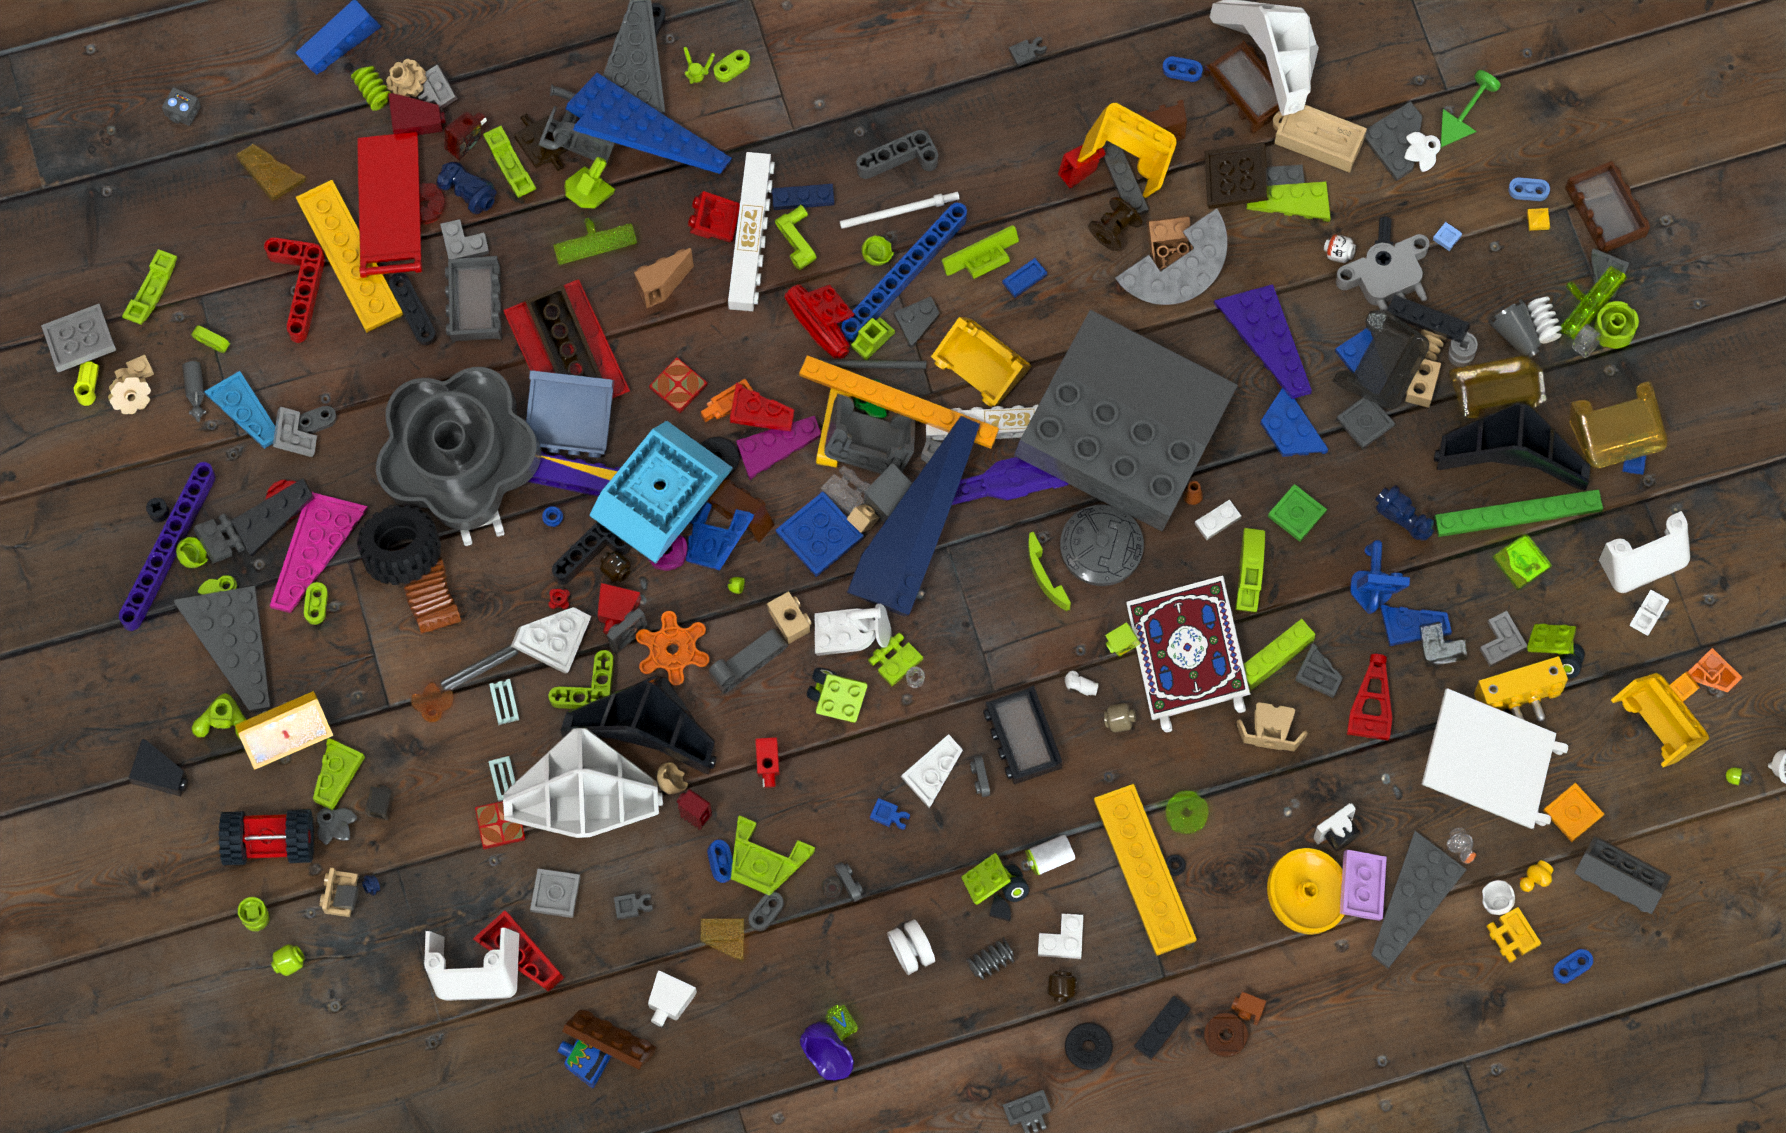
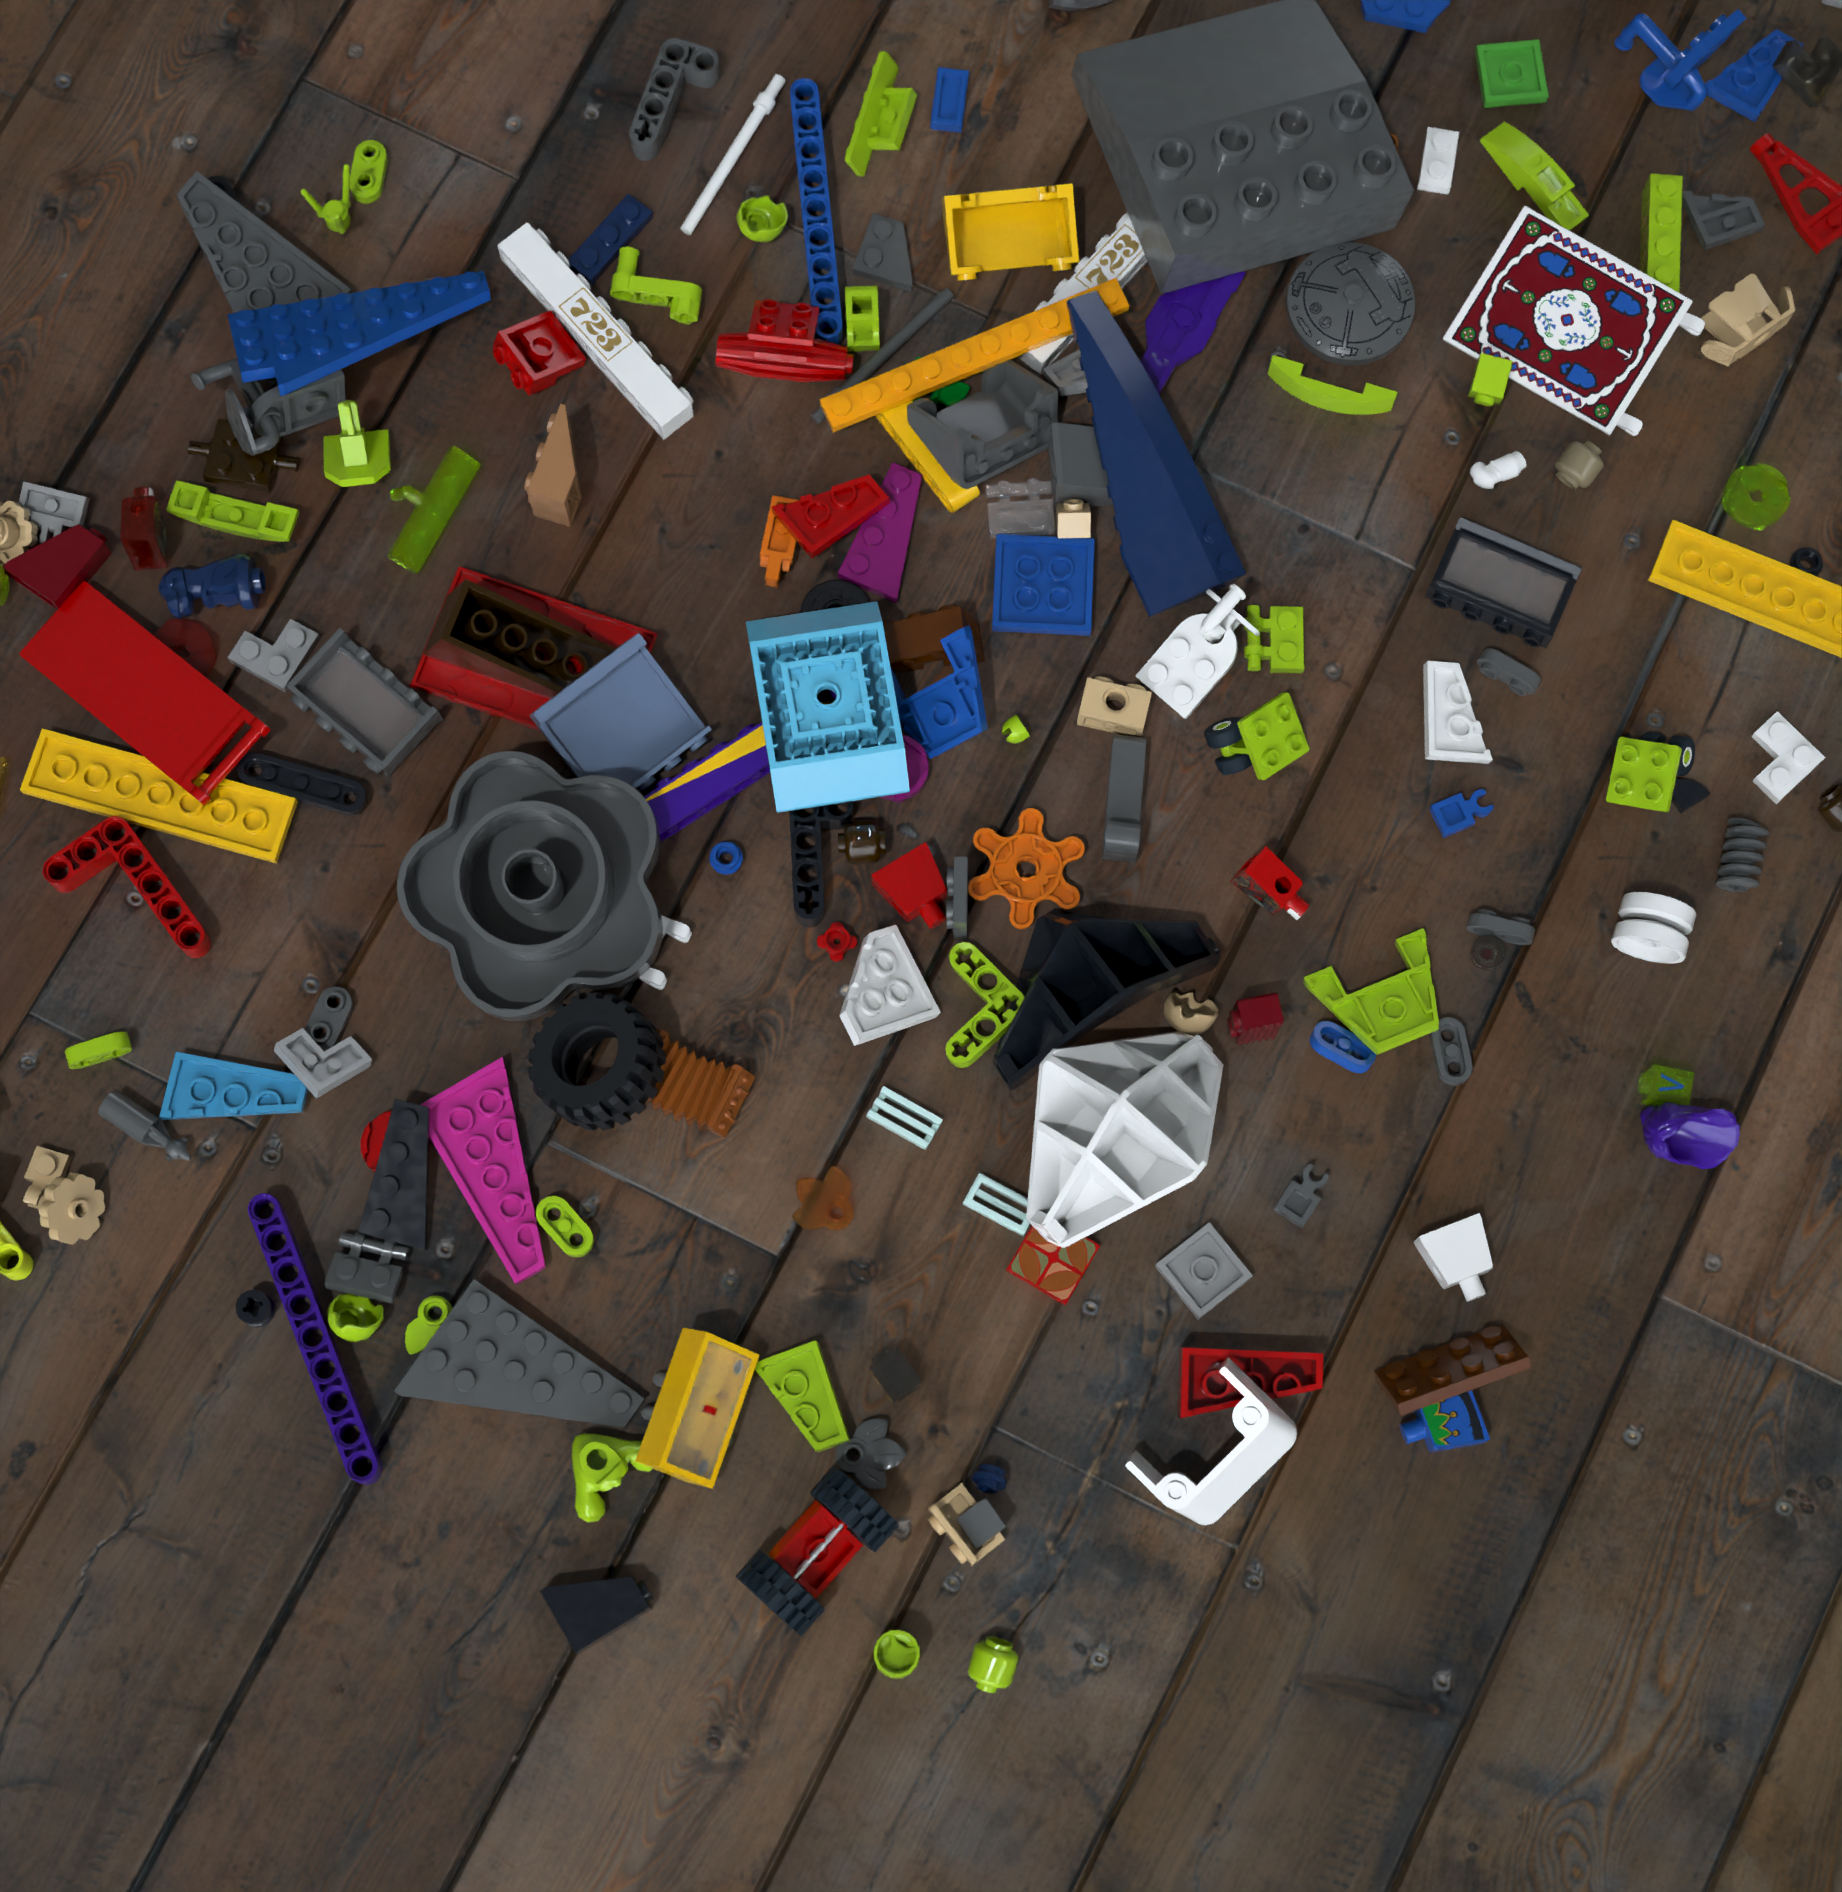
camera: 50 degrees left, 5 degrees up
(478, 668) = (833, 1109): dark grey axle -> none
(678, 385) = (703, 576): tile -> none
(724, 936) = (1438, 1125): clear yellow wing -> none
(920, 681) = (1318, 626): clear bush -> none
(1049, 854) = (1676, 681): flat silver piece -> none

